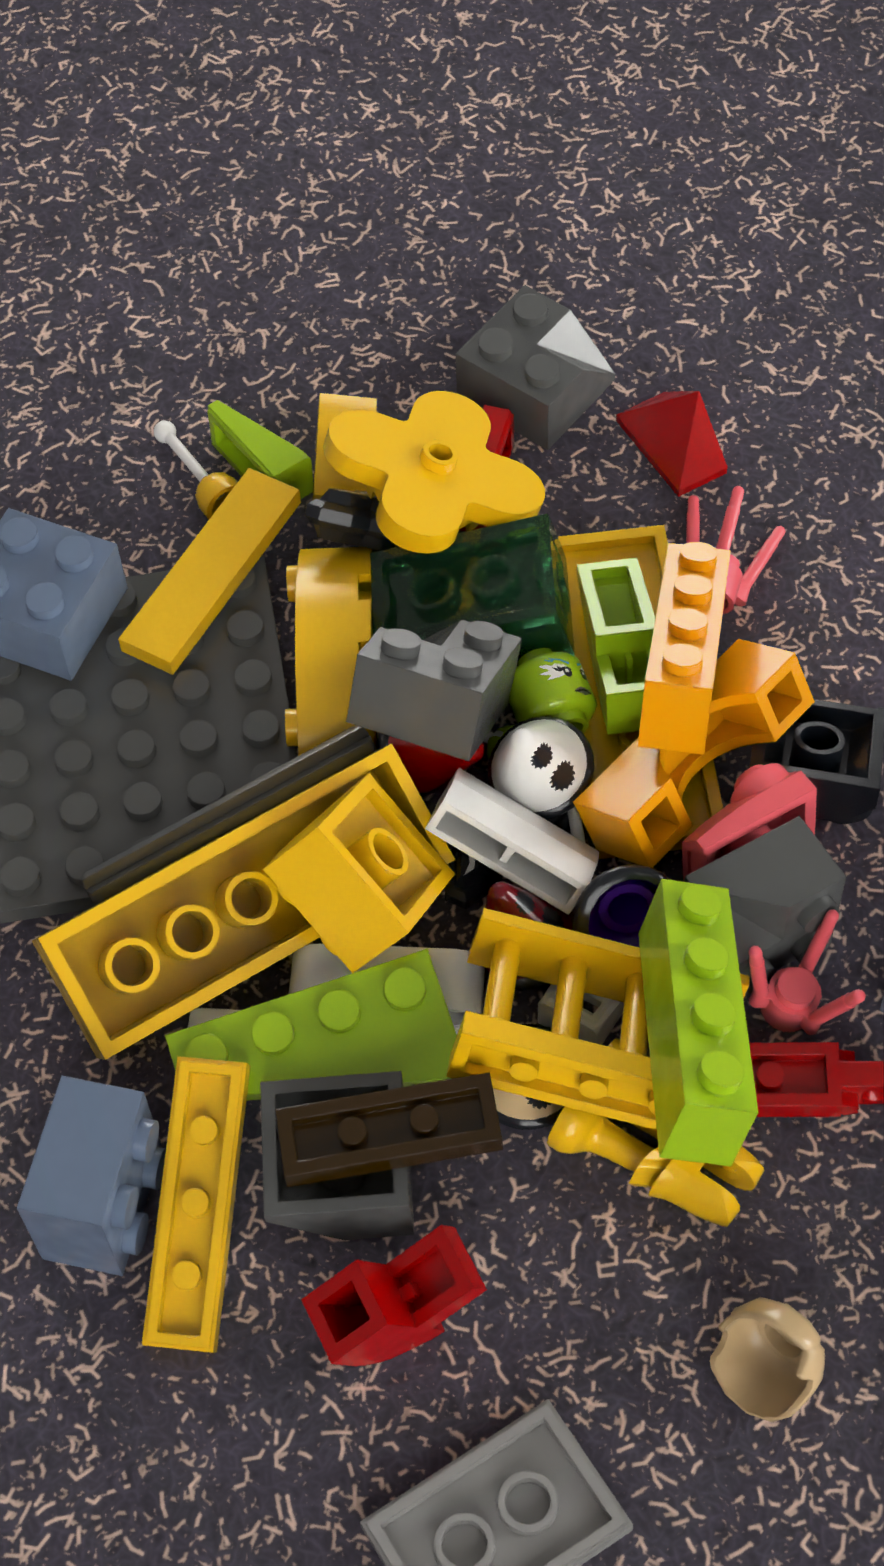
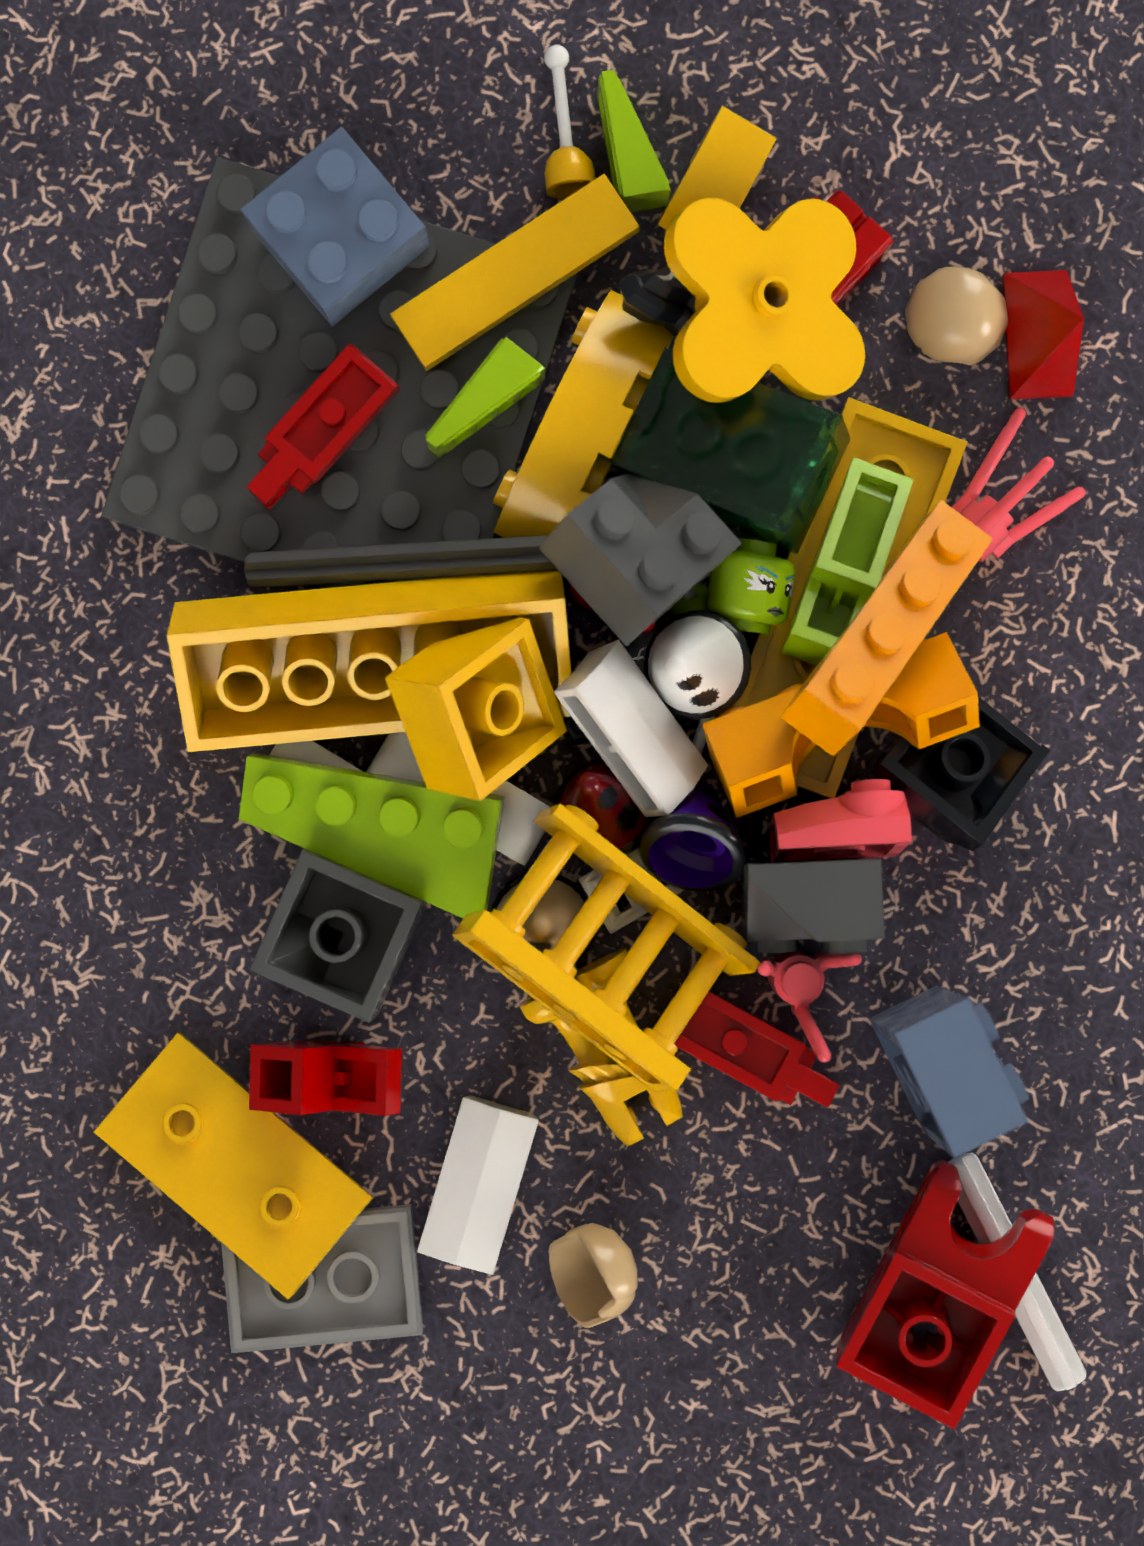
camera: 25 degrees right, 30 degrees up
(93, 1176) = (133, 853): sand blue brick -> none
(99, 748) = (321, 425): none -> red hinge
(196, 1205) = (210, 911): yellow tile -> none
(239, 650) = (493, 388): none -> lime slope
(345, 1447) = (233, 1166): none -> yellow plate
(388, 1129) = (379, 961): dark brown plate -> none
(535, 365) = (950, 182): dark grey slope -> none
(597, 452) = (956, 316): none -> tan hair
(605, 1340) = (478, 1184): none -> white piece
(696, 1024) = (673, 1014): lime brick -> none

